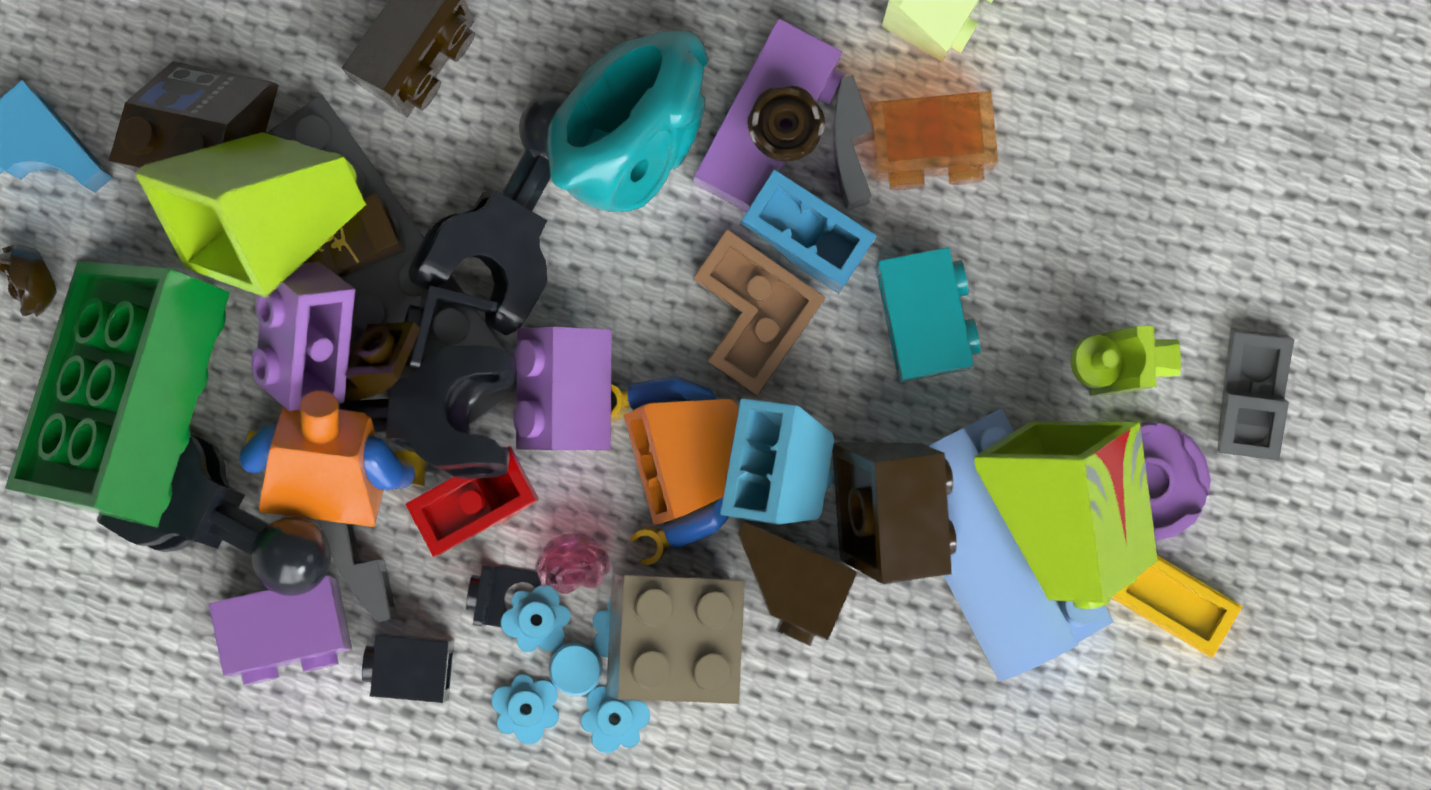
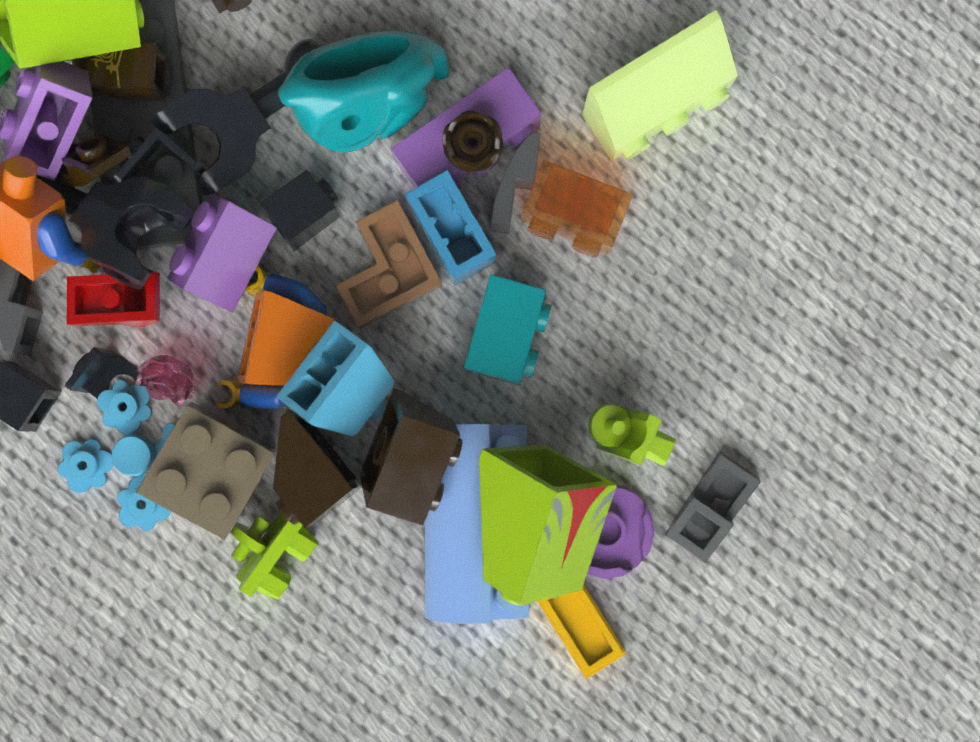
camera: 25 degrees right, 0 degrees up
(625, 294) = (301, 209): none -> black brick
(781, 695) = (260, 569): none -> lime hips

